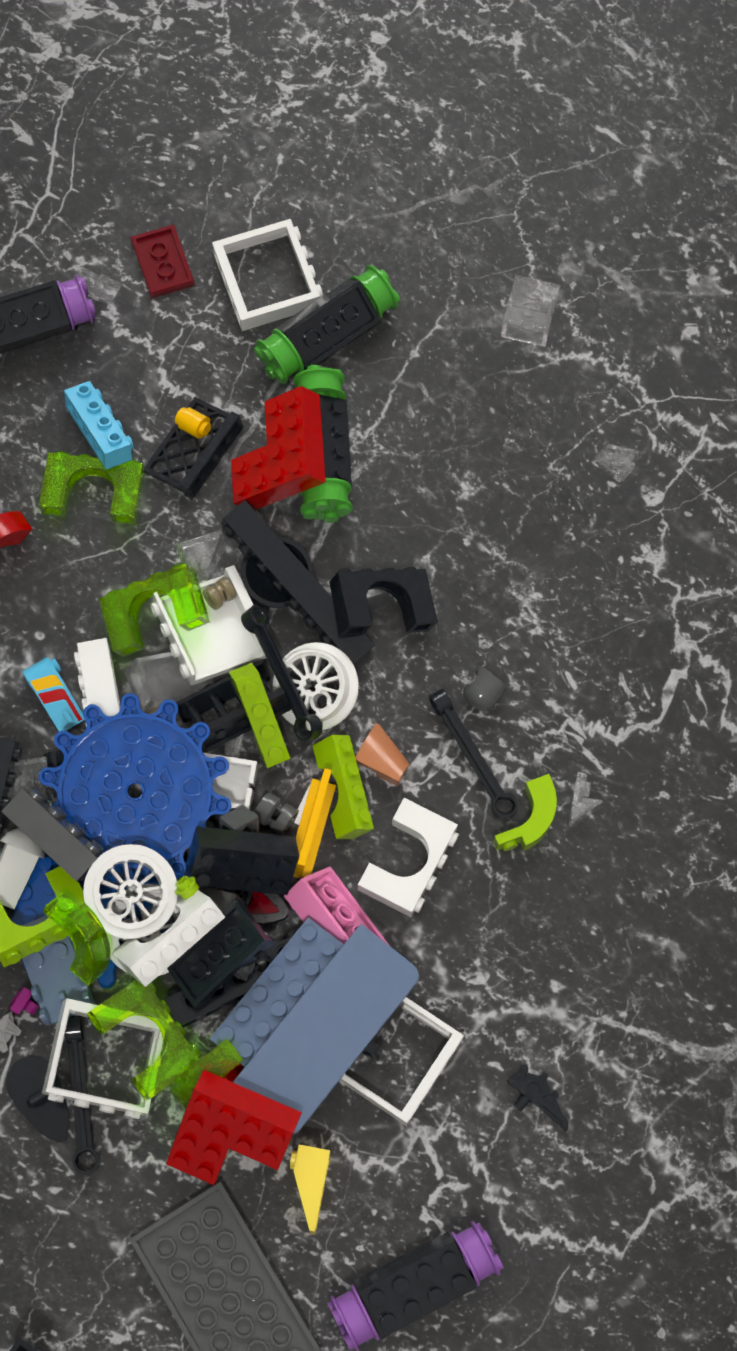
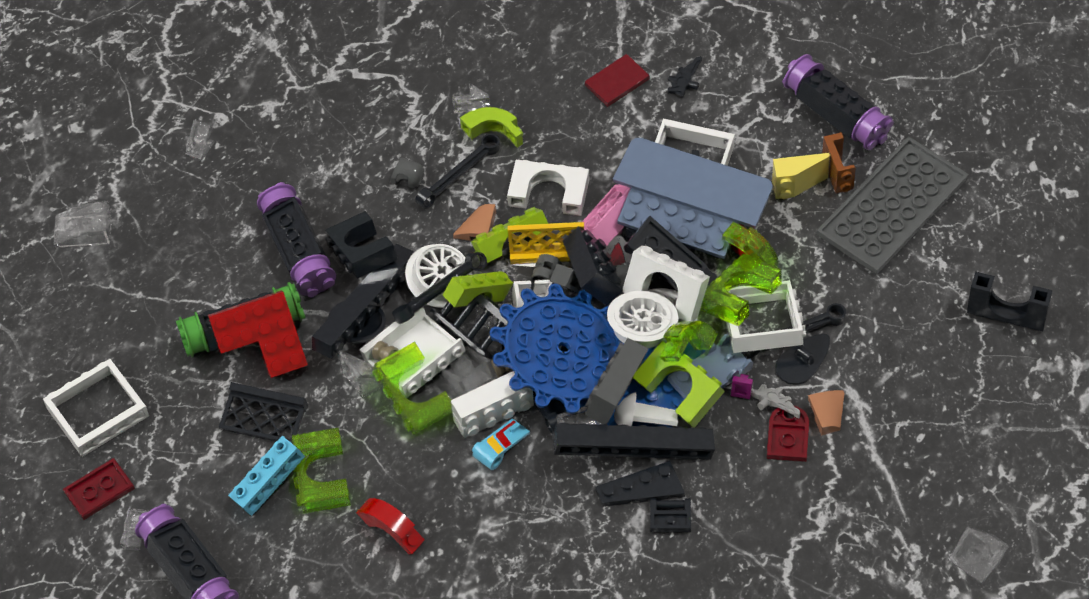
camera: 100 degrees left, 15 degrees down
(186, 887) = (629, 281): lime plate -> none
(193, 422) = (245, 412): yellow brick -> none
(226, 1119) = (778, 220): red brick -> none
(311, 1240) = (841, 176): none -> dark orange panel
(327, 324) = (135, 345): black brick -> none
(419, 530) = (296, 239): none -> brick
(561, 1002) = (617, 80): none -> dark red tile

